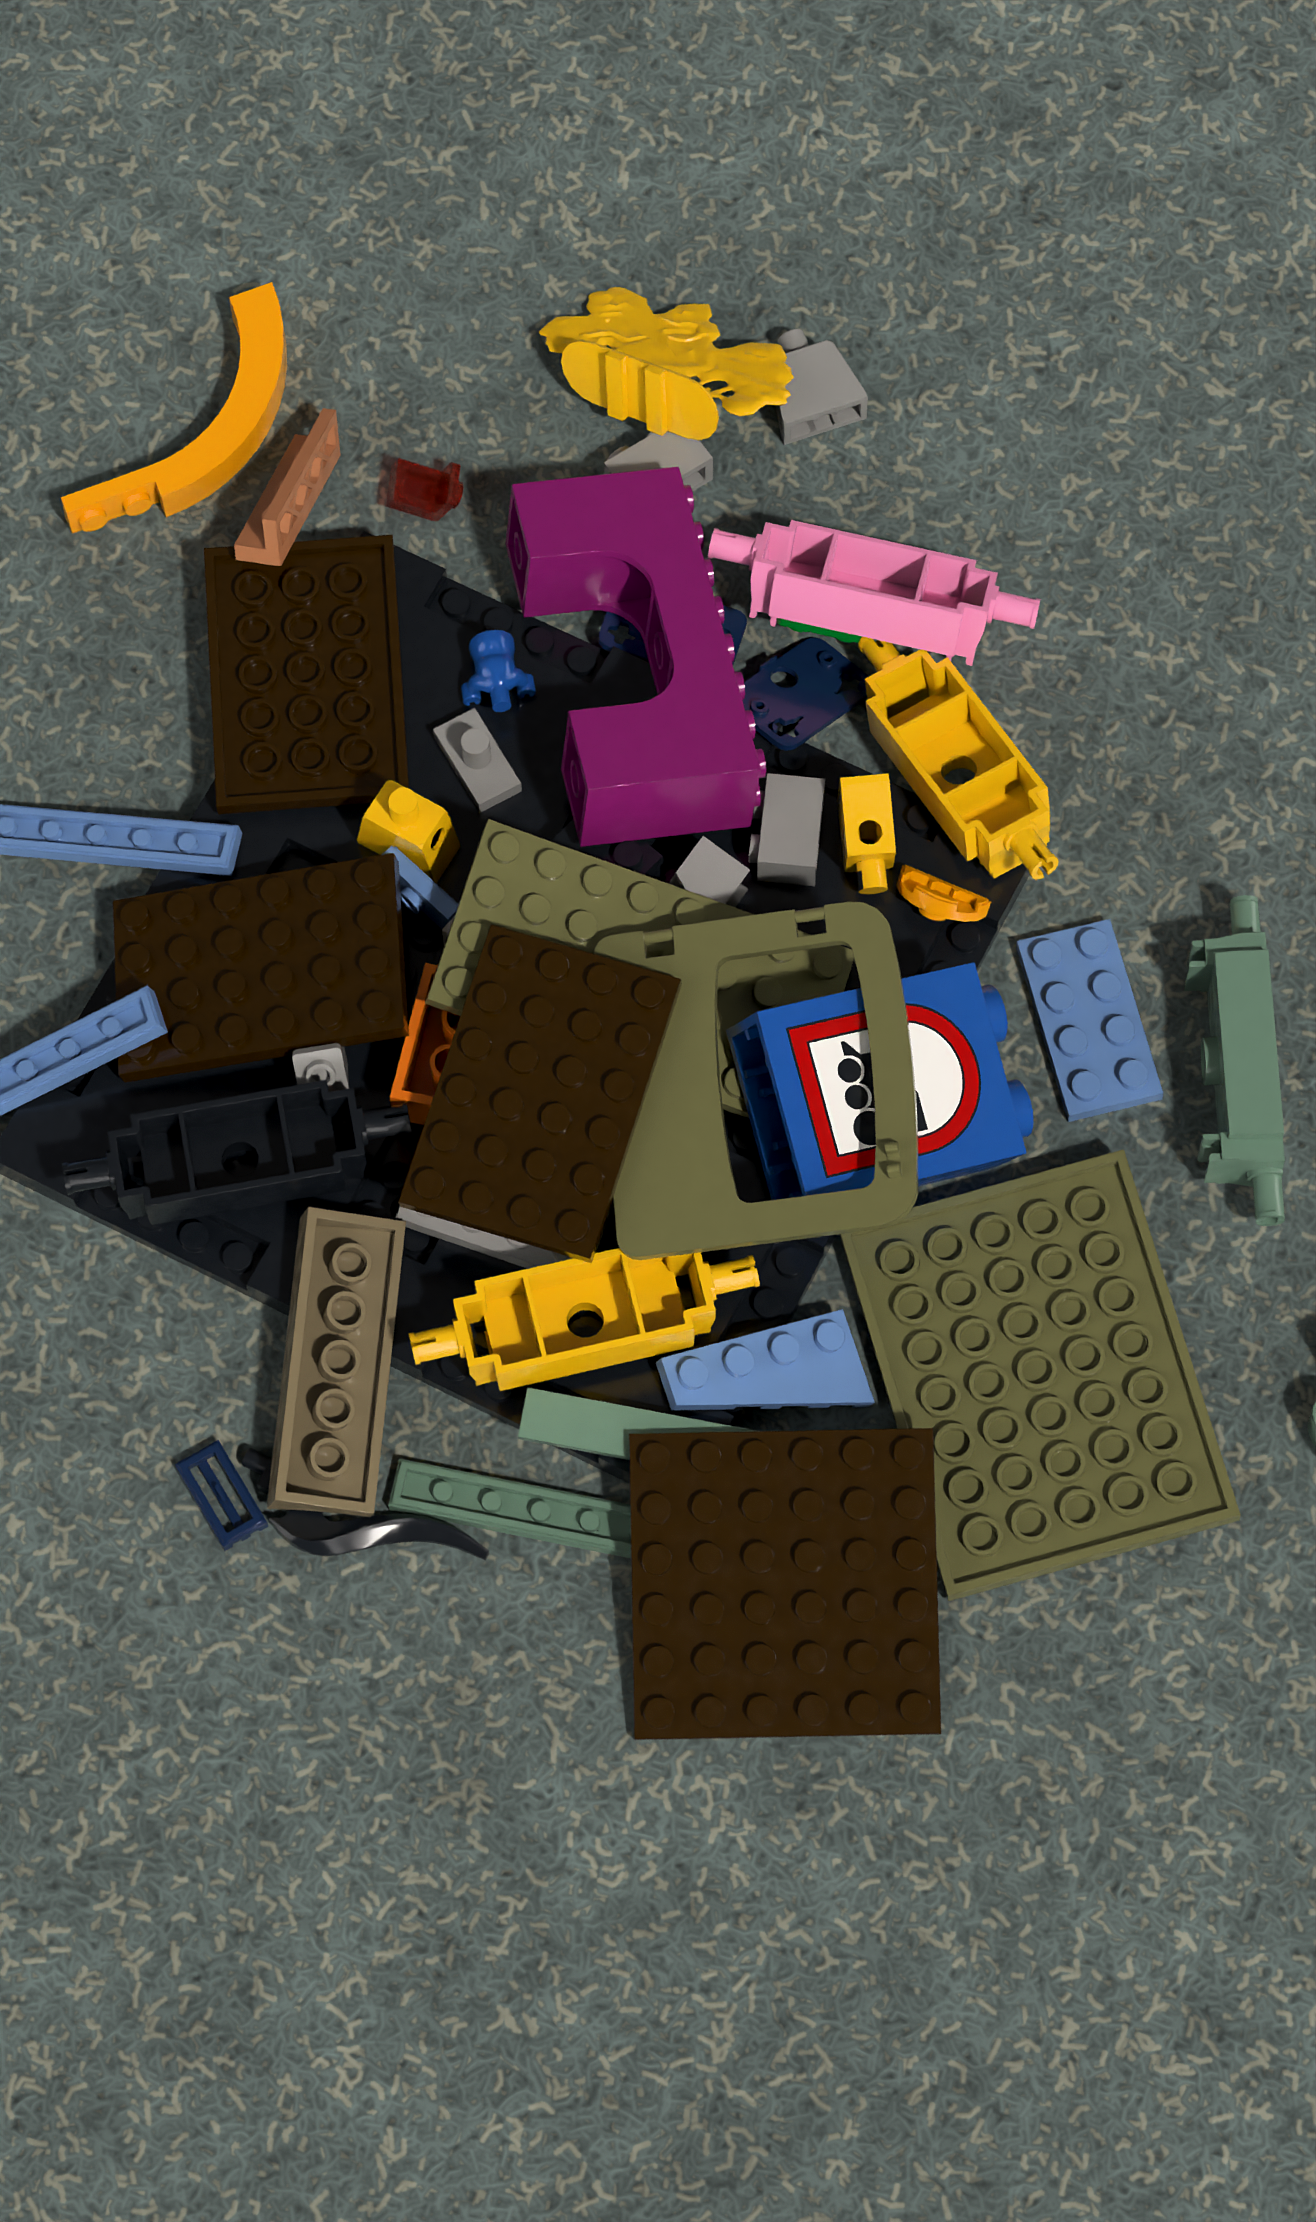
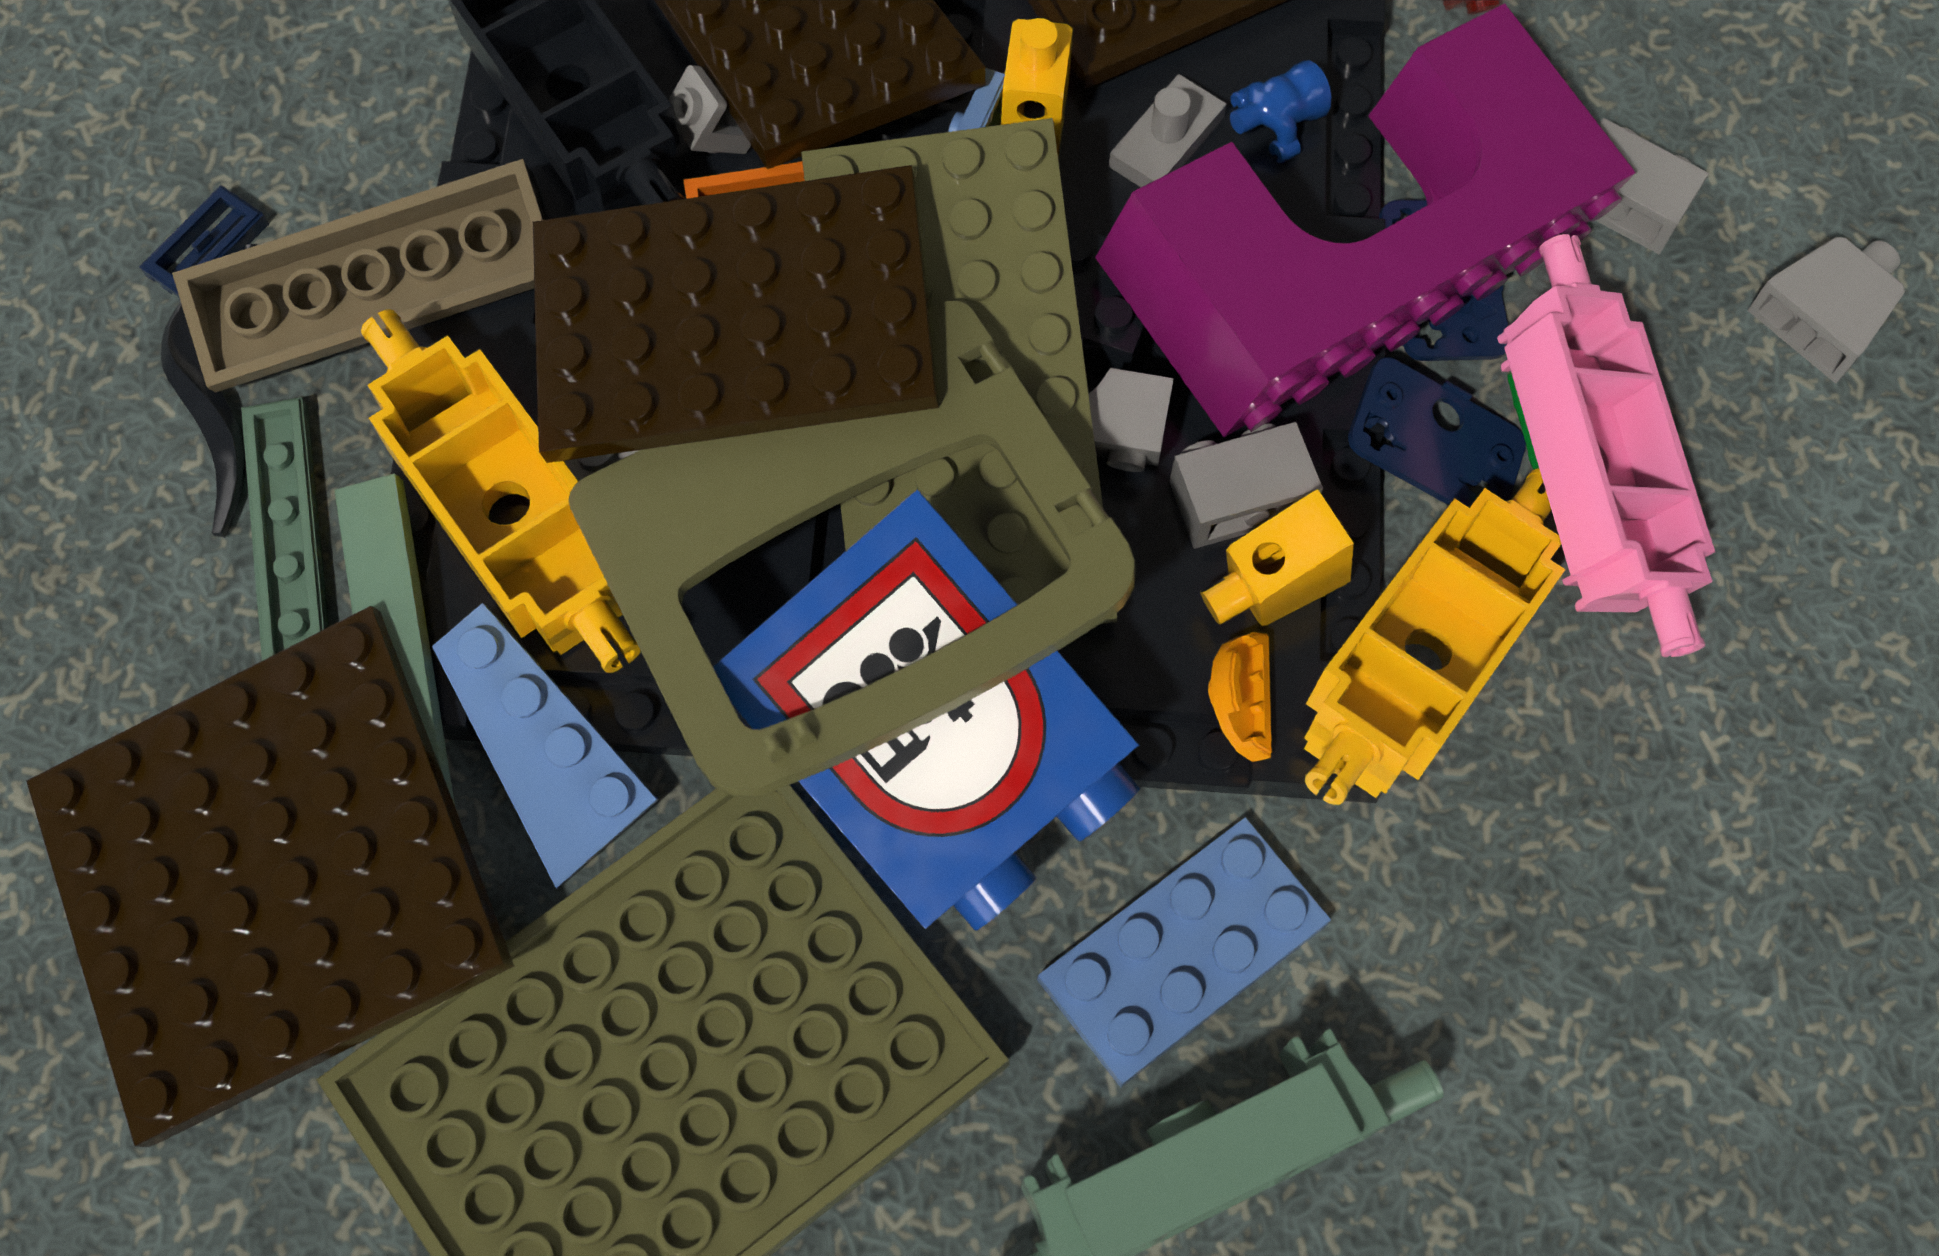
camera: 65 degrees right, 0 degrees up
(653, 363) = (1782, 106): yellow plant -> none

